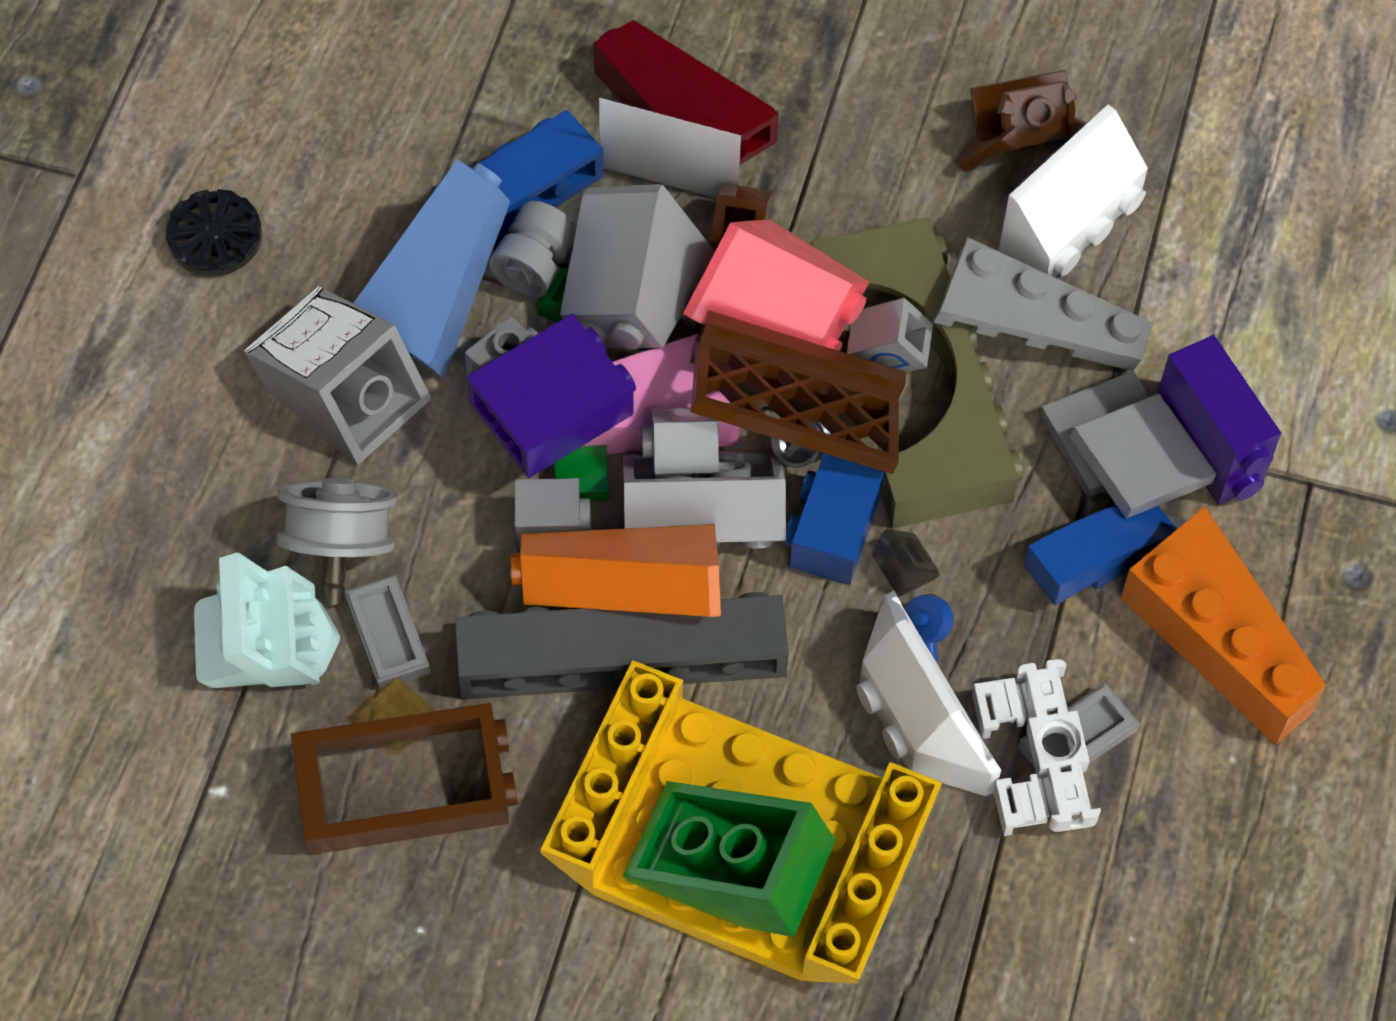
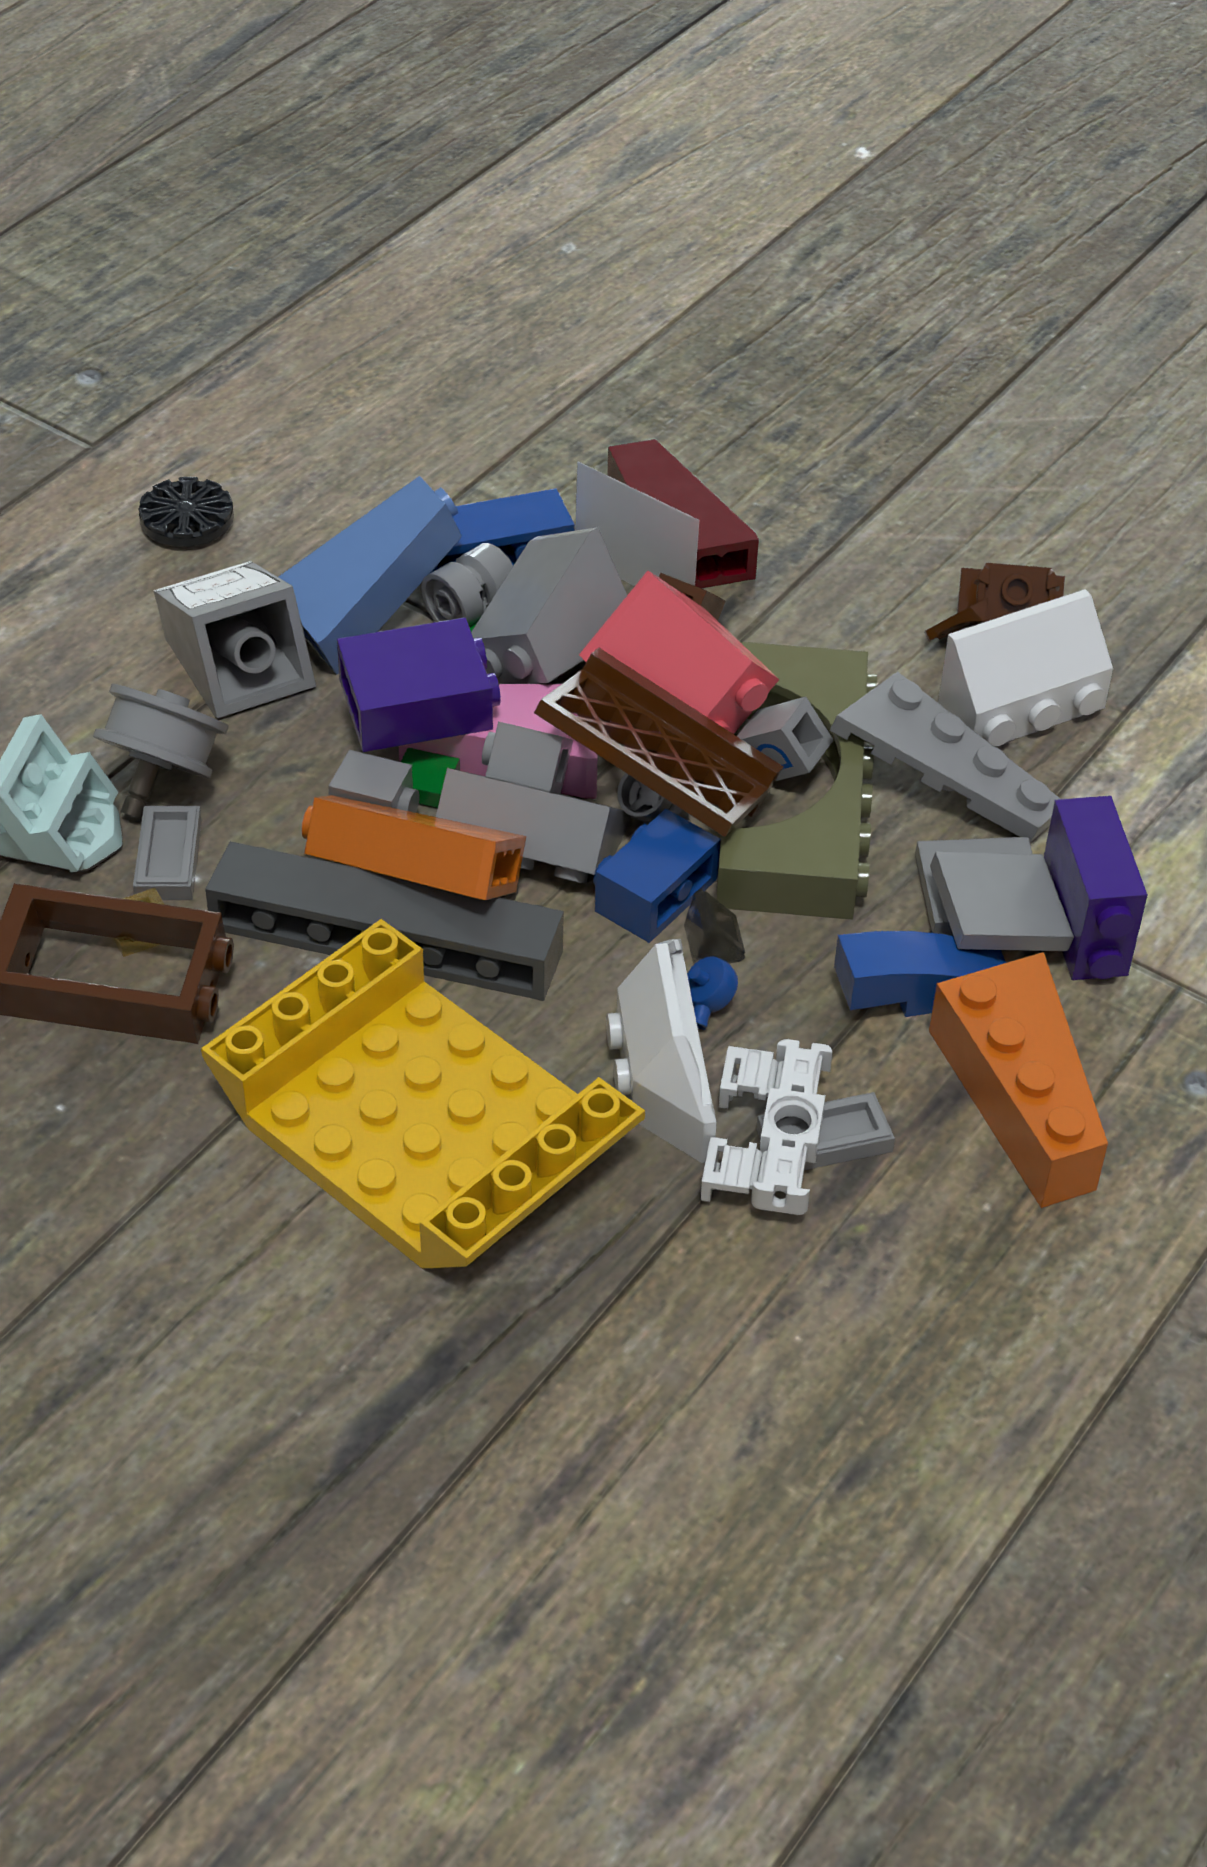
camera: 20 degrees right, 15 degrees down
(733, 855) = (398, 1114): green slope -> none

